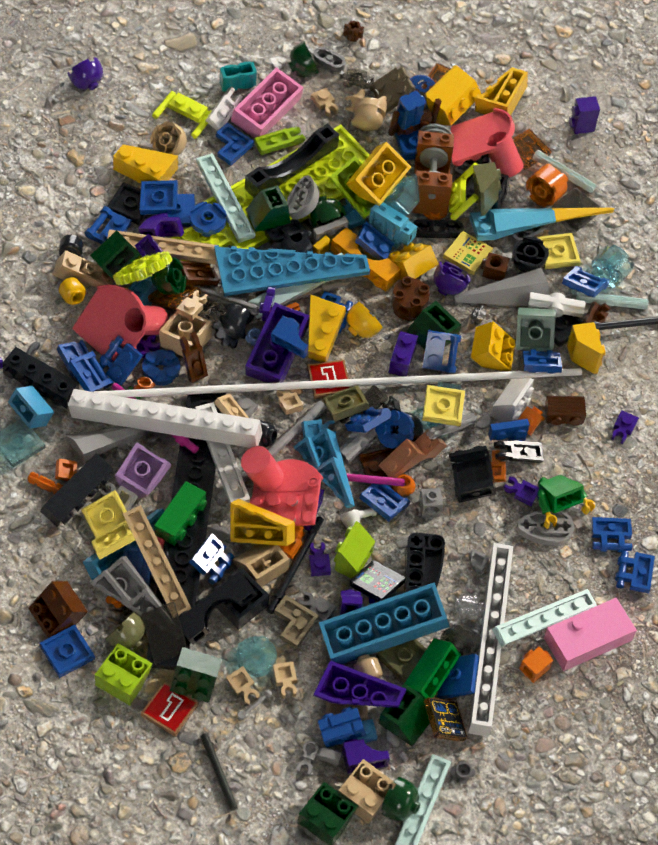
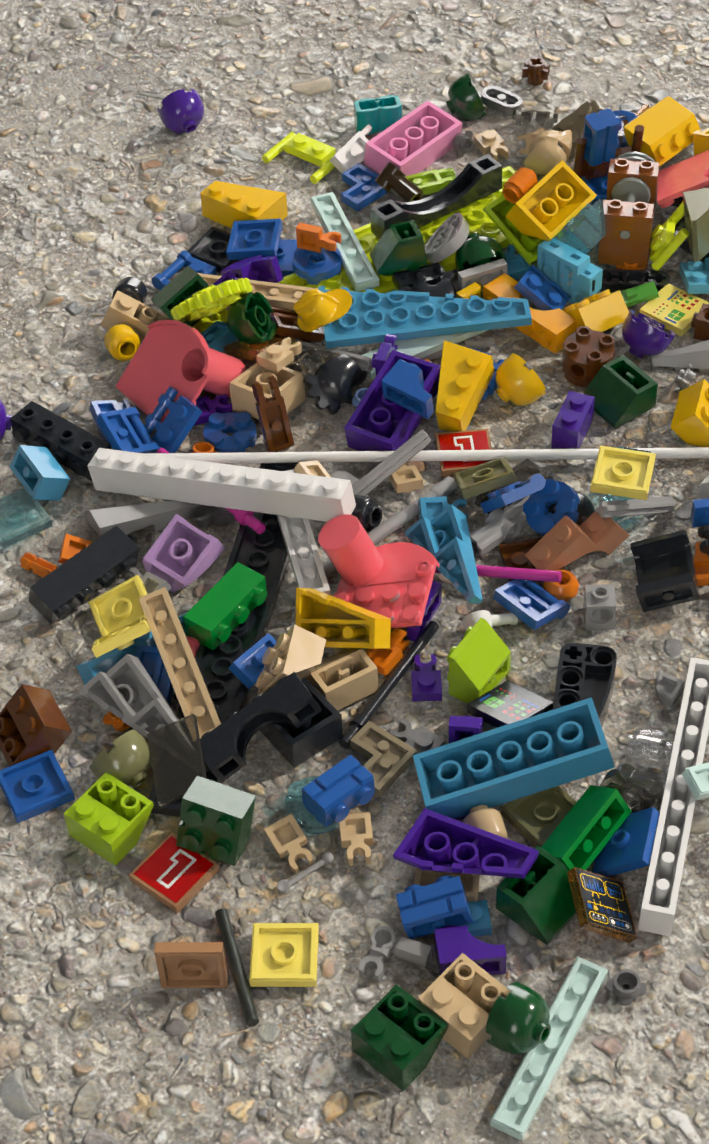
camera: 15 degrees right, 10 degrees down
(168, 138) = (278, 175): tan cylinder -> none
(193, 775) = (191, 964): none -> medium nougat tile
(206, 202) = (313, 239): none -> orange plate
(219, 265) = (321, 308): none -> yellow piece
(230, 558) = (293, 651): none -> tan slope
(248, 762) = (284, 955): none -> light yellow plate
(257, 143) = (396, 183): none -> dark brown piece
(273, 649) = (338, 791): none -> blue brick
(279, 395) = (391, 463): none -> light grey axle
(304, 101) = (463, 143): none -> flat silver plate
(355, 159) = (519, 184): none -> orange brick
(435, 349) = (619, 415): blue plate -> none
(440, 241) = (640, 294): none -> bright green piece

